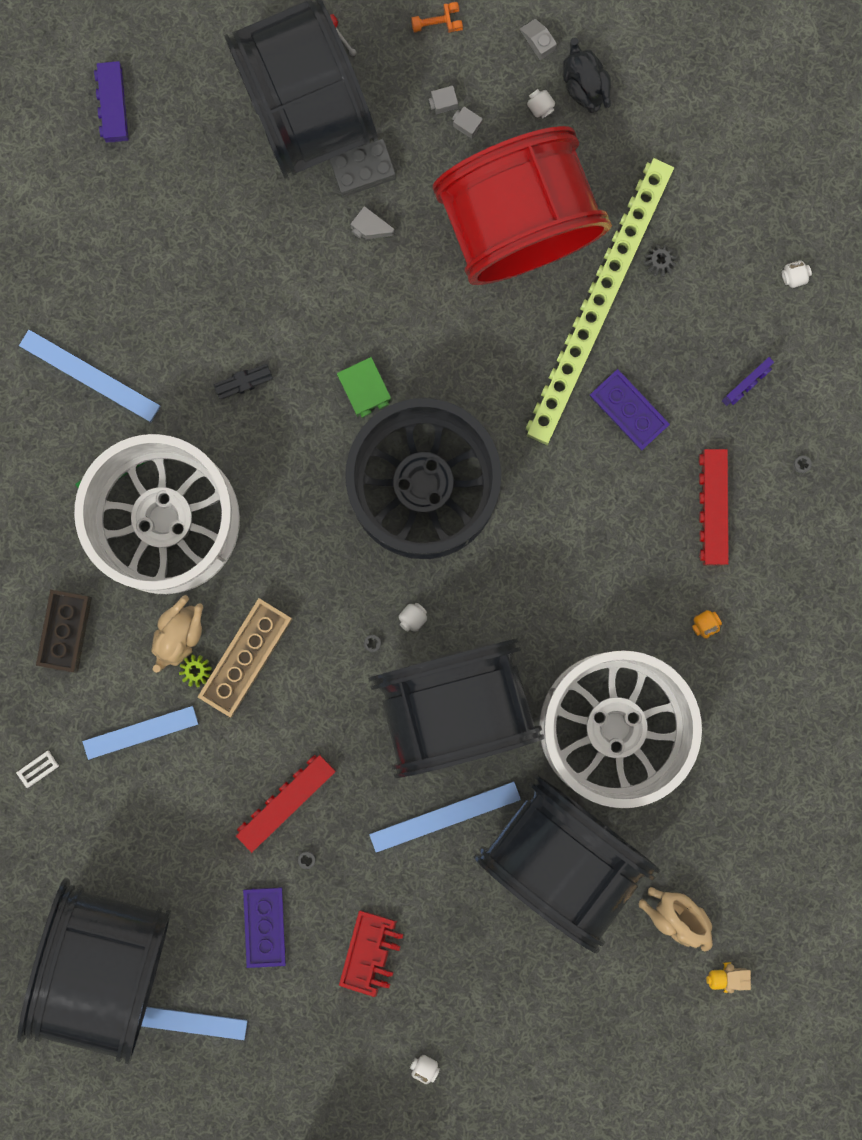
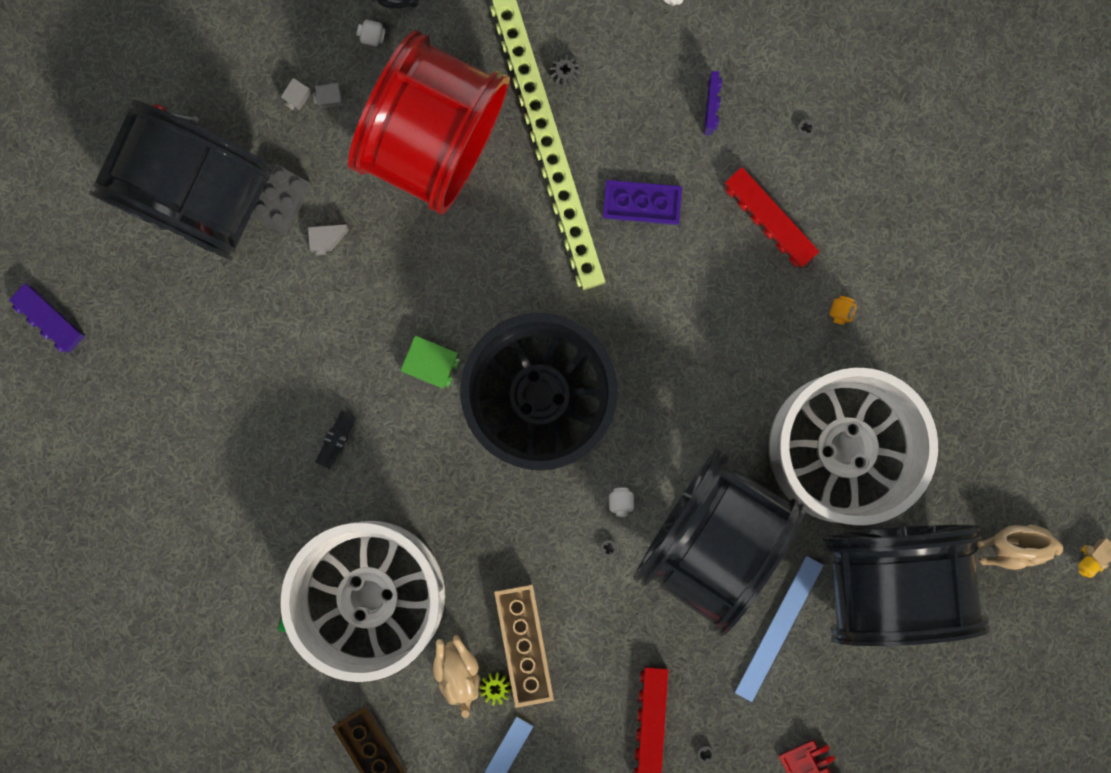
camera: 40 degrees left, 0 degrees up
(89, 376) = (215, 539): light blue tile -> none
(453, 7) = (224, 55): orange bar -> none

